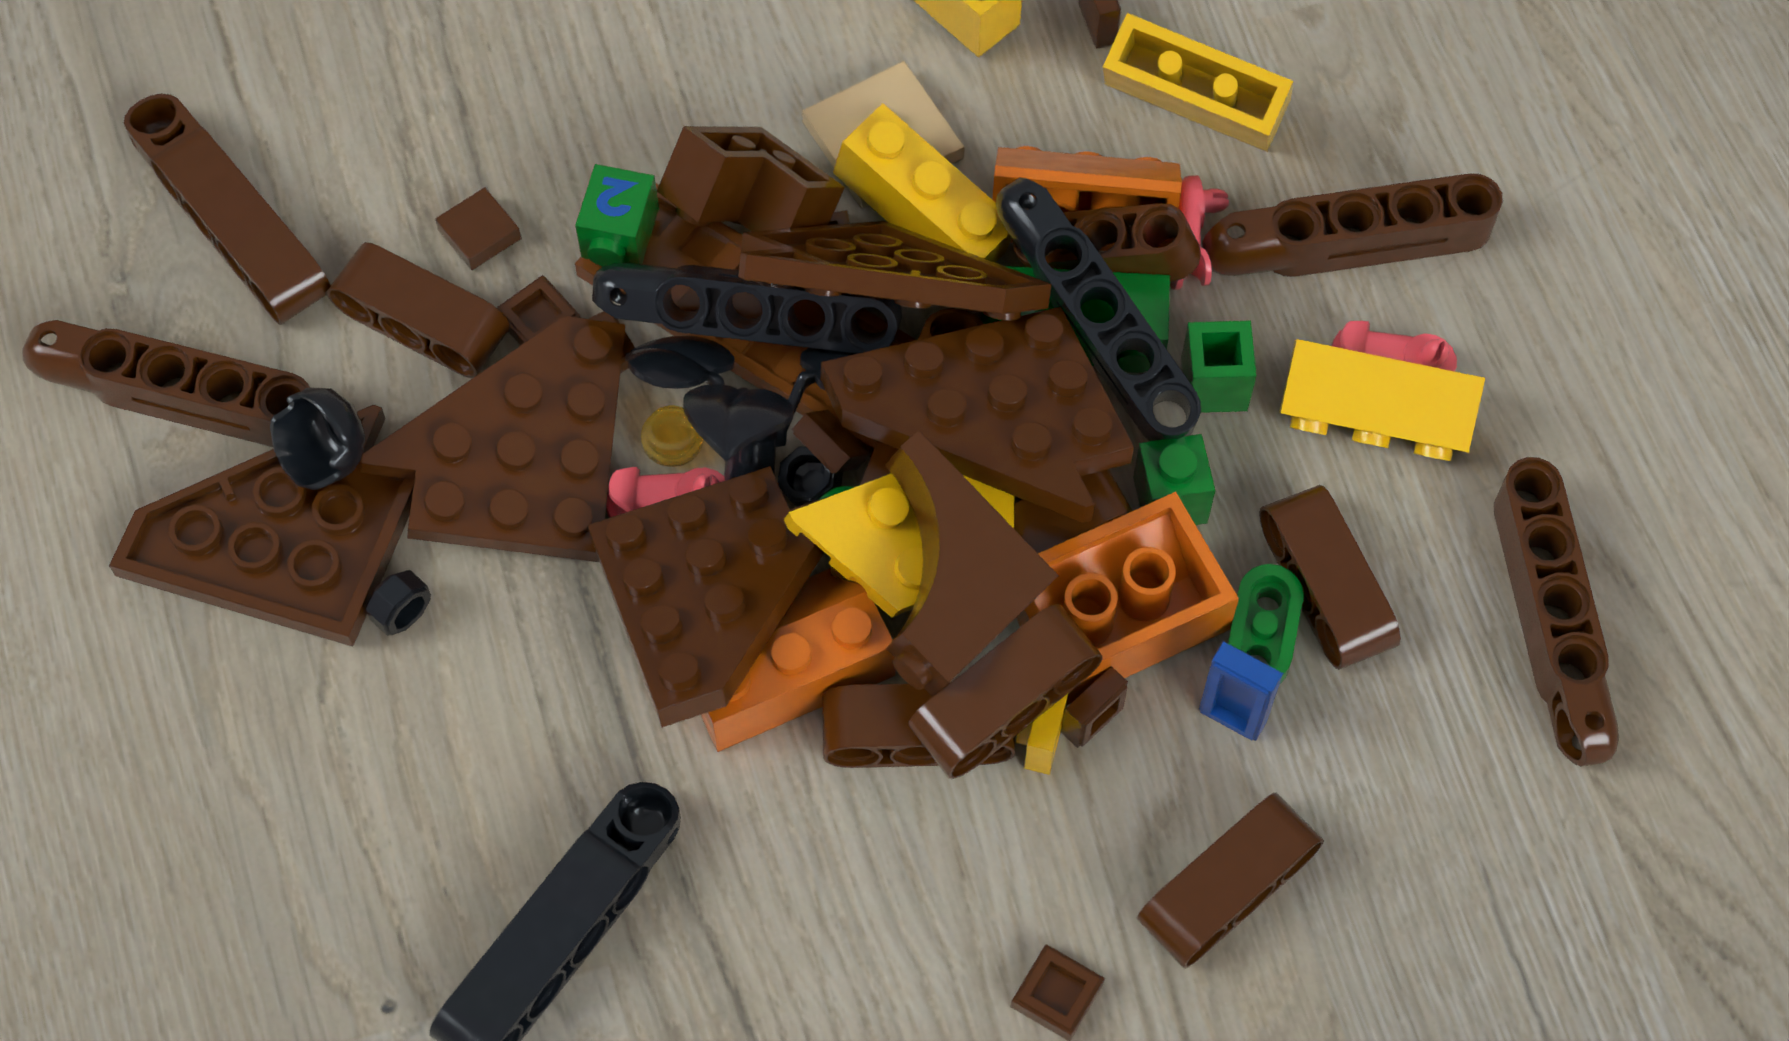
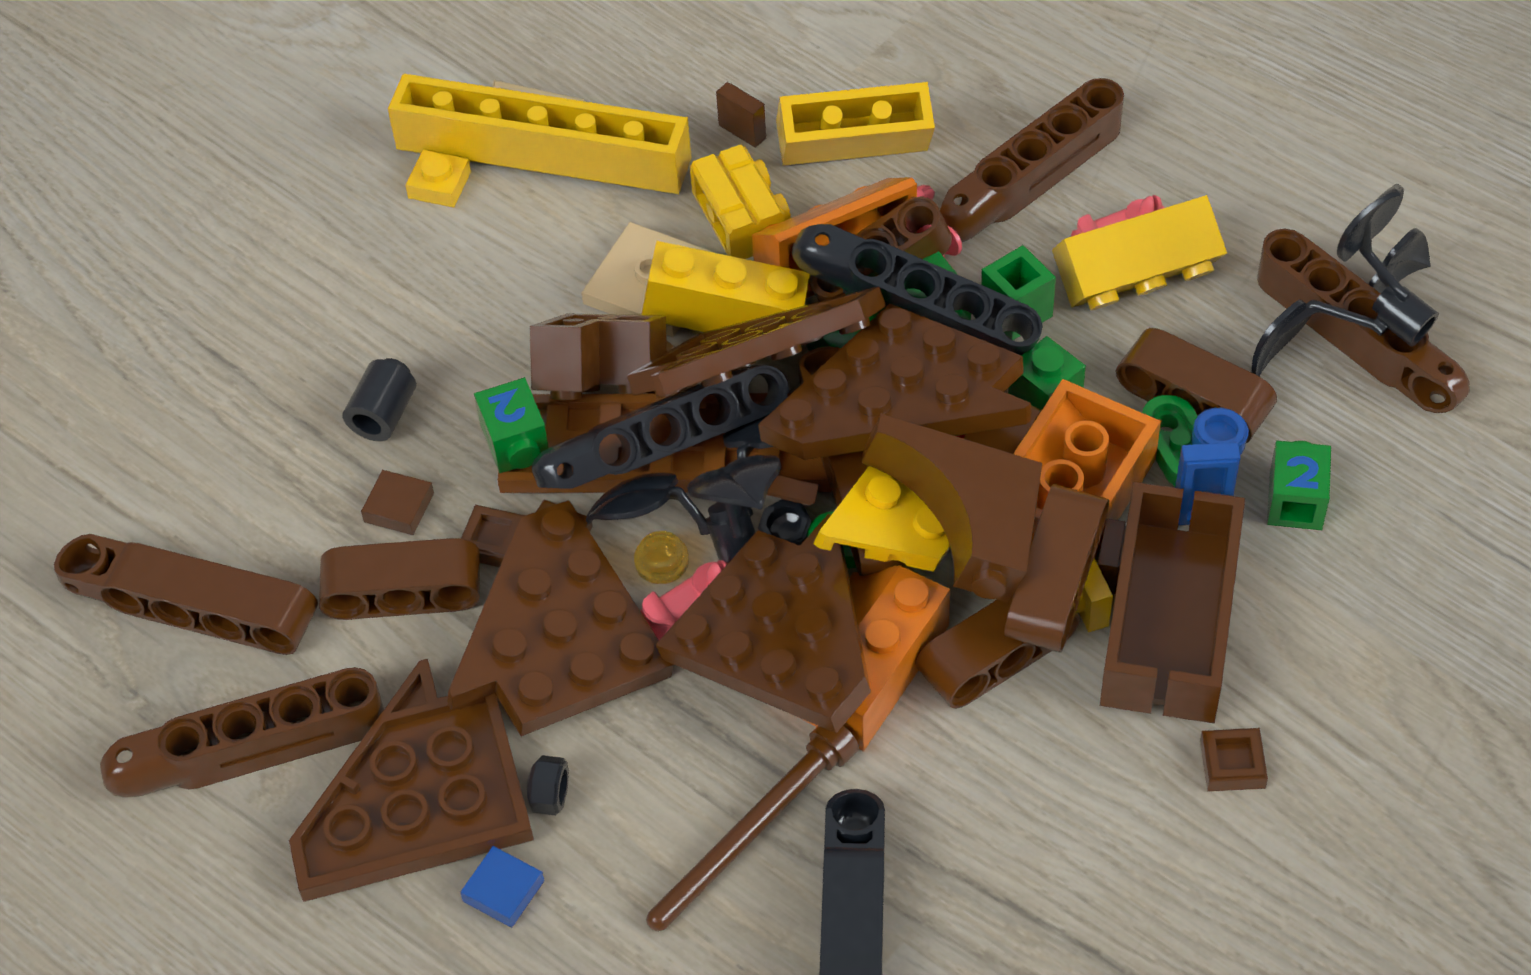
camera: 30 degrees left, 10 degrees down
(292, 674) = (502, 886): none -> blue tile
(317, 437) = (406, 697): black hair -> none
(533, 112) = (379, 399): none -> black brick
(684, 735) = (823, 752): none -> reddish brown piece
(1024, 96) = (736, 198): none -> yellow brick
(1111, 794) = (1173, 604): none -> reddish brown piece
(1230, 880) = (1291, 614): reddish brown beam -> none
(1302, 646) = (1220, 426): none -> blue tile
(1348, 748) = (1299, 485): none -> green brick
(1586, 623) = (1396, 305): none -> black plant

